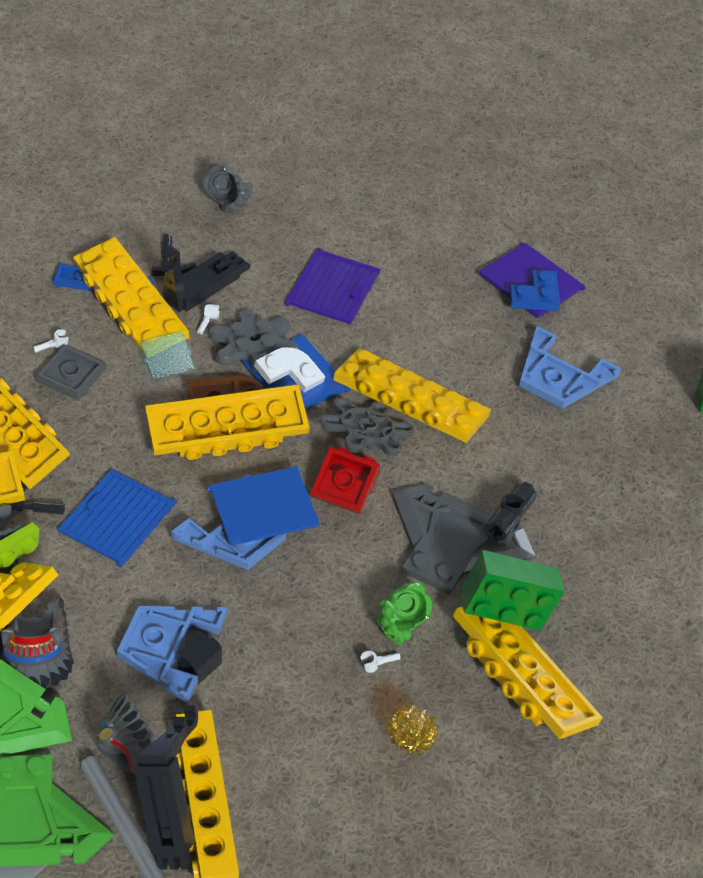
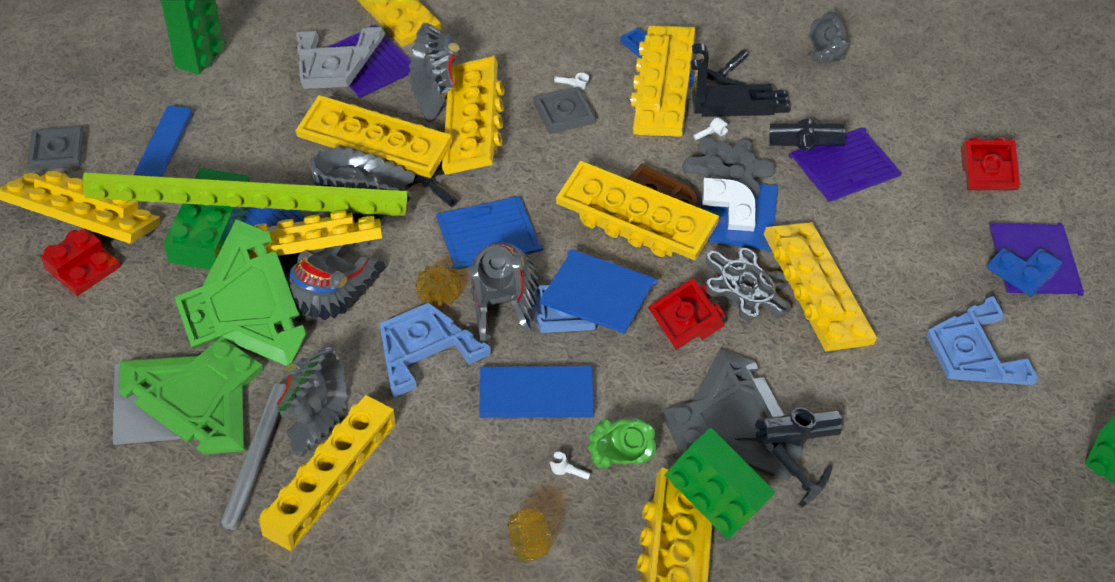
camera: 45 degrees right, 0 degrees up
(129, 586) = (438, 285): none -> clear yellow gear
(164, 795) = (275, 432): black hinge -> none
(167, 355) = (647, 139): clear light blue piece -> none
(182, 544) = (503, 275): none -> dark grey piece
(200, 656) = (433, 369): black brick -> none
(288, 278) = (795, 134): none -> black piece
(293, 619) = (536, 392): none -> blue tile
(438, 224) = (990, 164): none -> red plate
(557, 551) = (796, 471): none -> black piece

